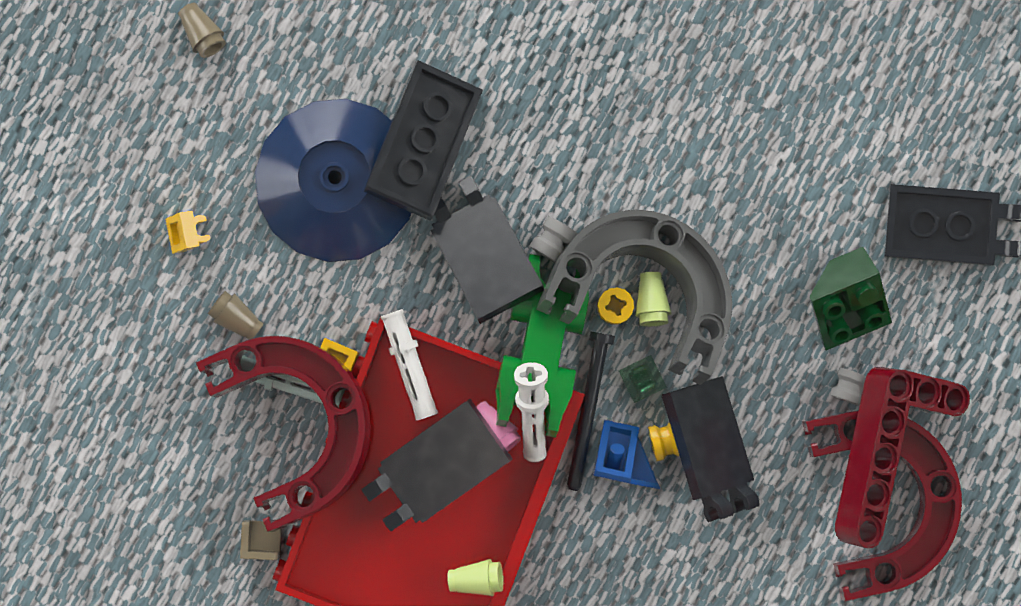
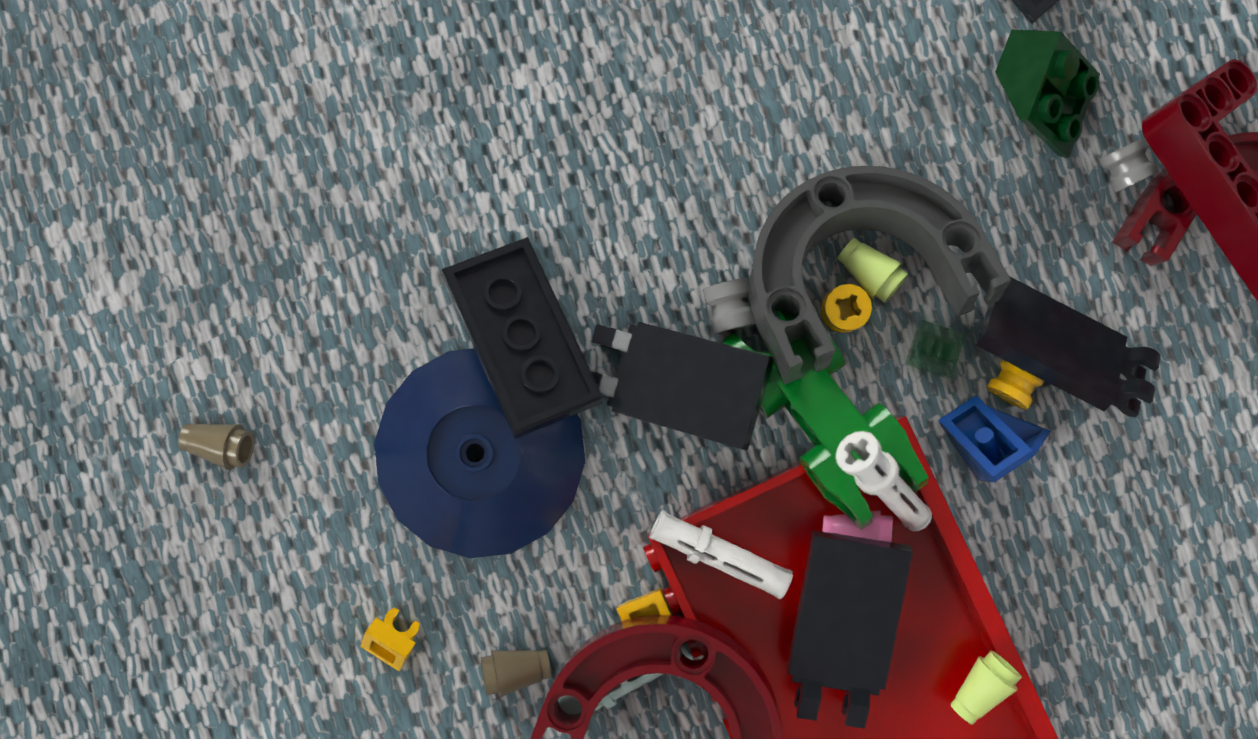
camera: 50 degrees left, 0 degrees up
(588, 408) = (902, 406): black bar -> none

